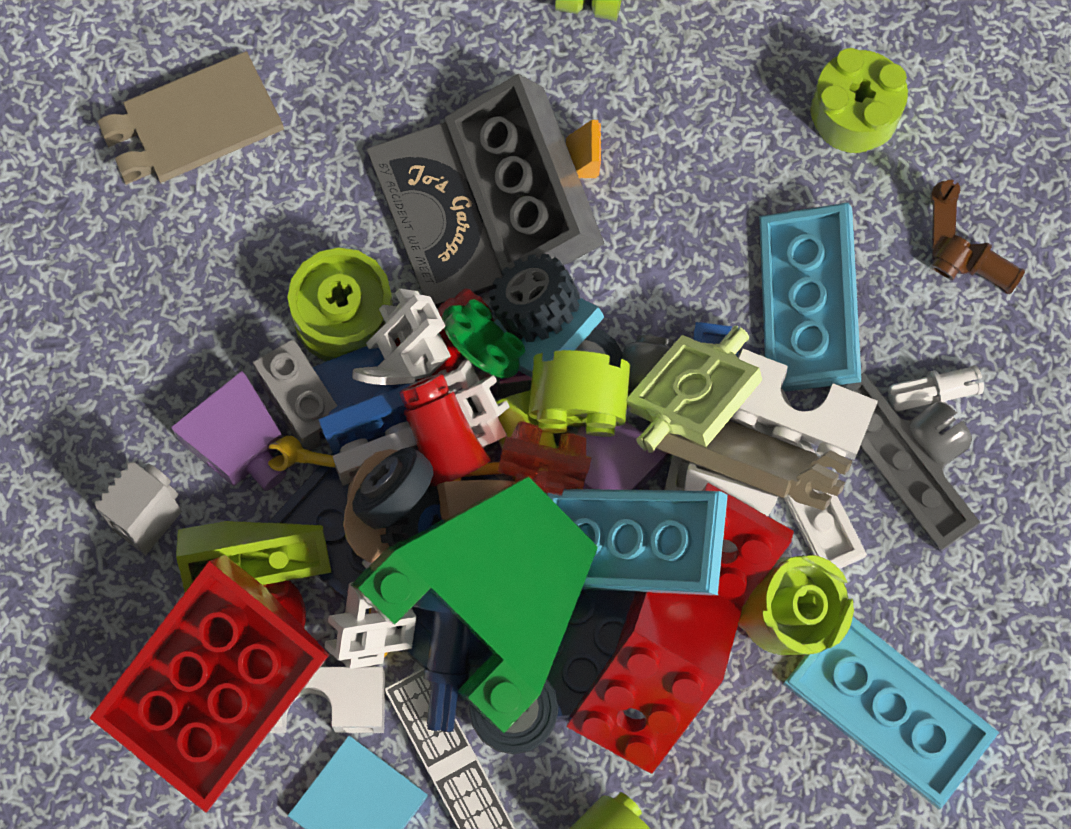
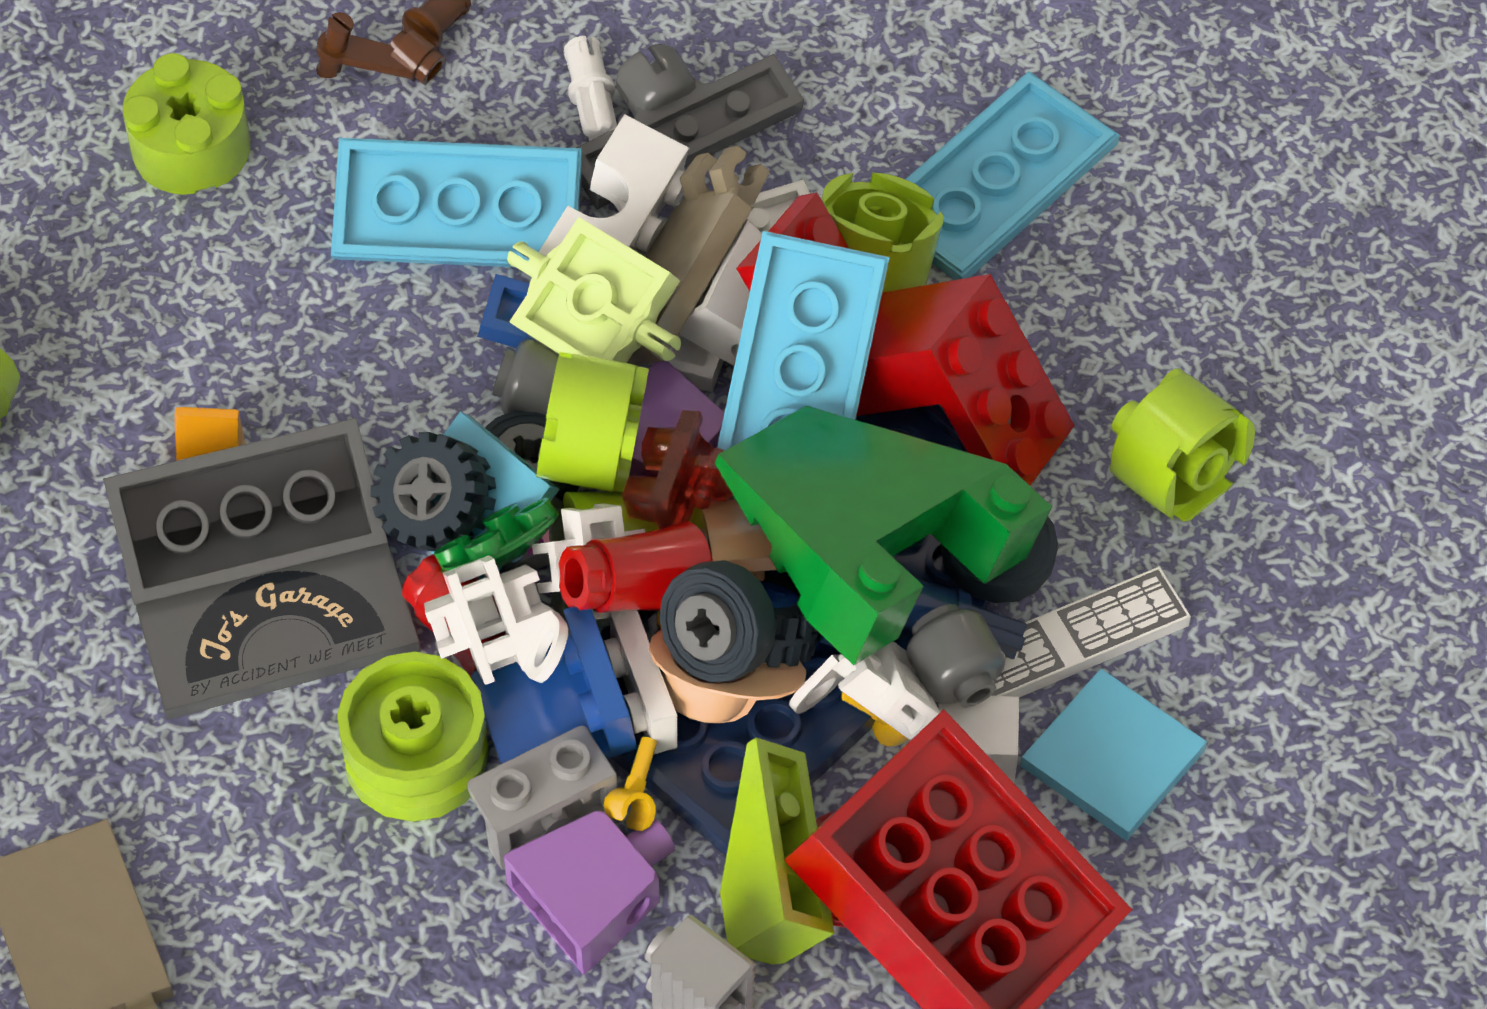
camera: 85 degrees left, 15 degrees down
(394, 671) = (955, 655): none -> dark grey head

